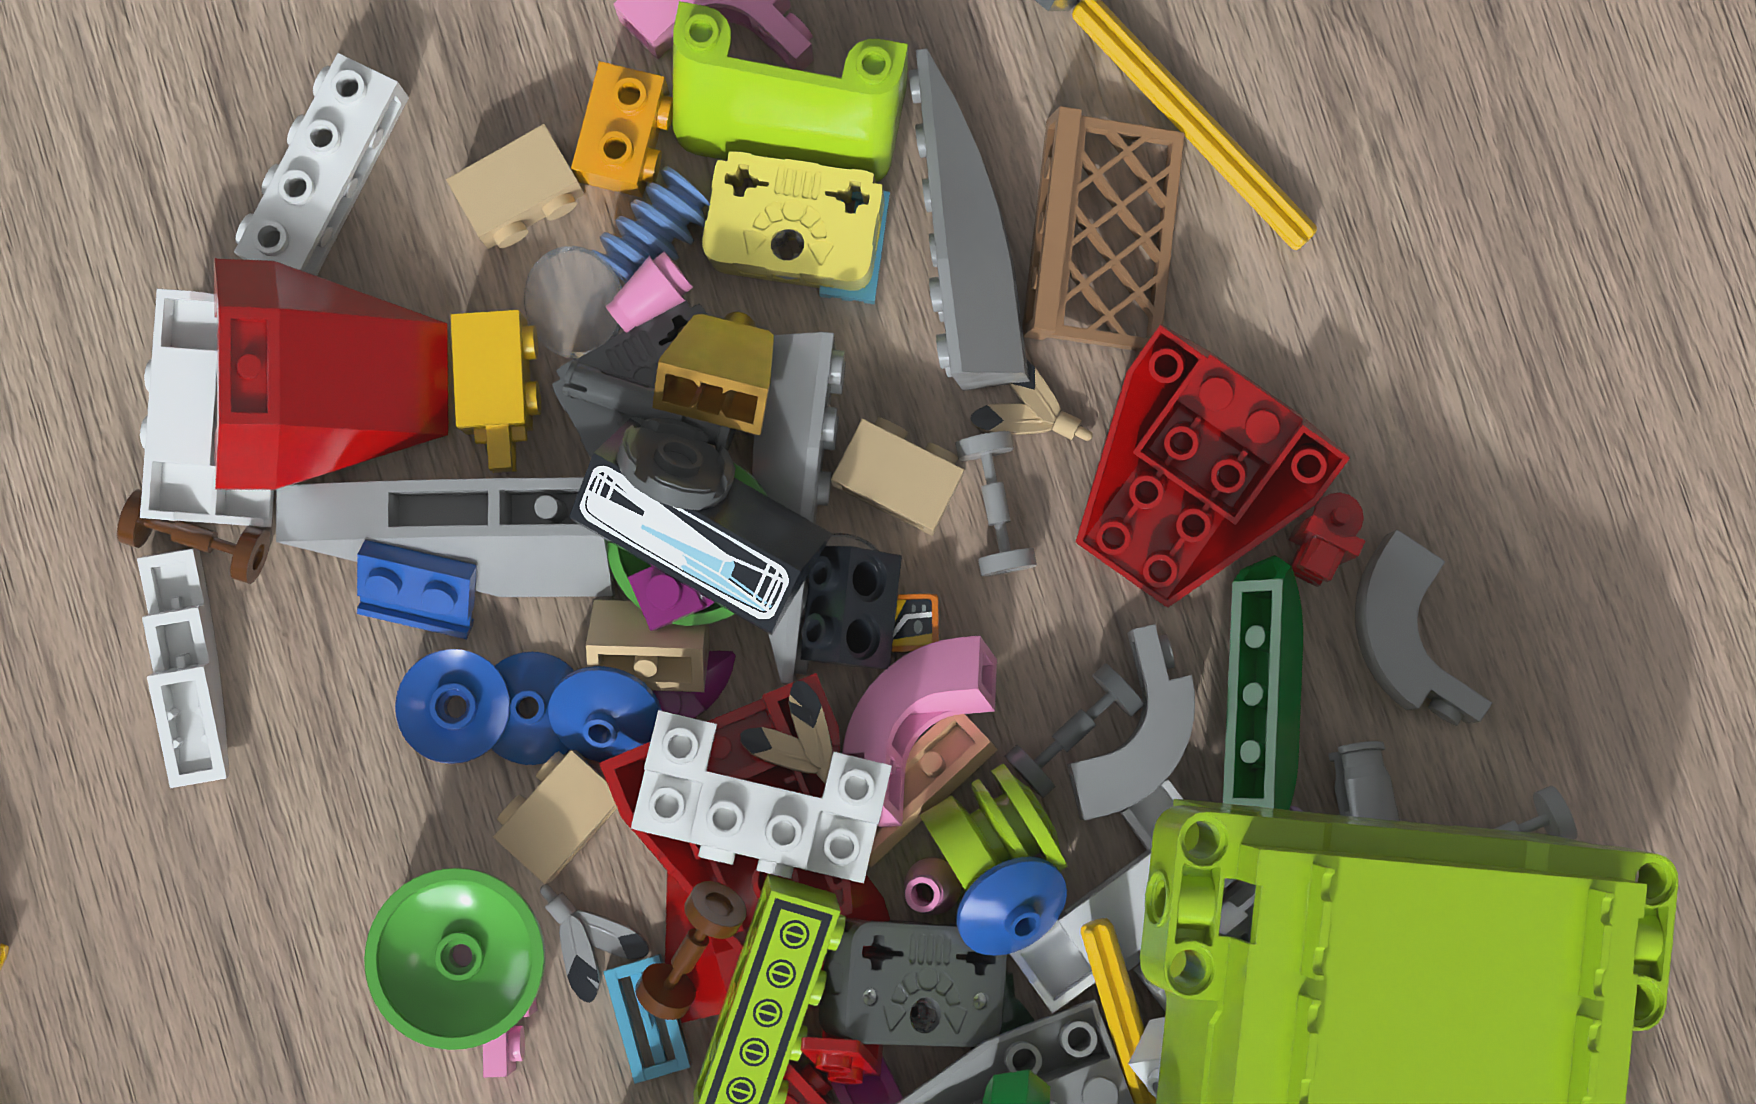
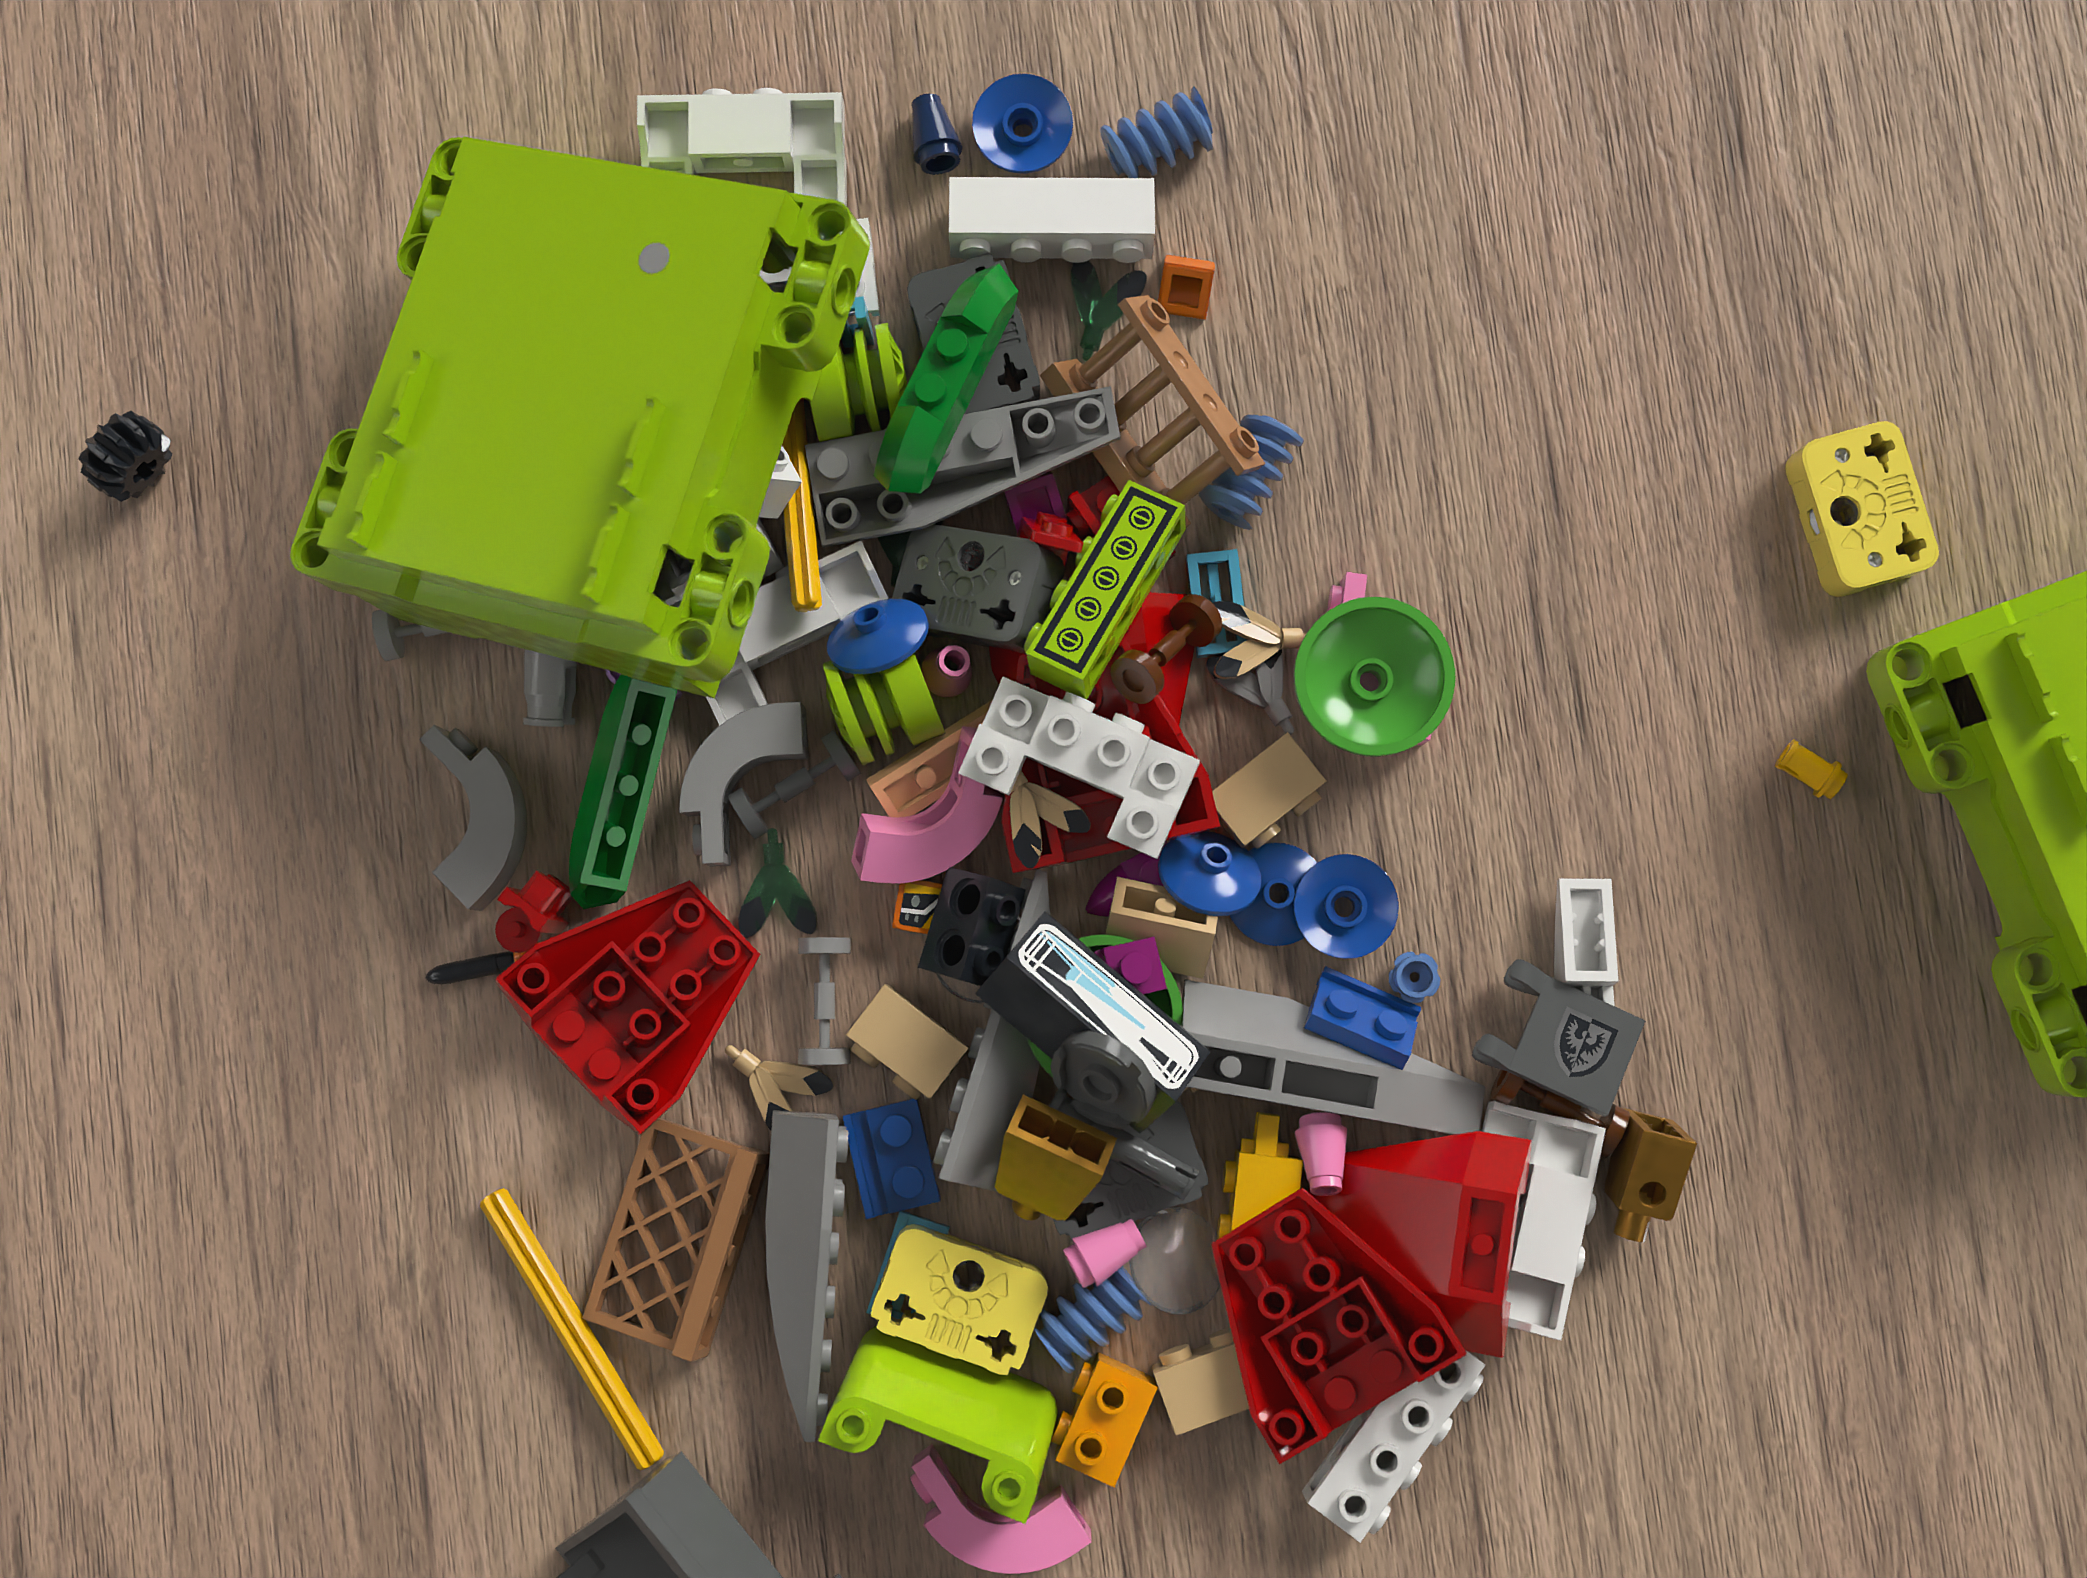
camera: 170 degrees left, 0 degrees up
(89, 481) = (1648, 1173): none -> pearl gold torso
(190, 602) = (1569, 1041): none -> dark grey flag
(353, 645) = (1428, 976): none -> medium blue plate
(408, 261) = (1321, 1323): none -> red wedge
(436, 439) = (1322, 1149): none -> bright pink cone
(589, 986) = (1263, 639): none -> tan piece
(893, 354) = (892, 1158): none -> blue plate
(1075, 622) = (774, 882): none -> clear green piece
(1378, 472) = (472, 968): none -> black piece

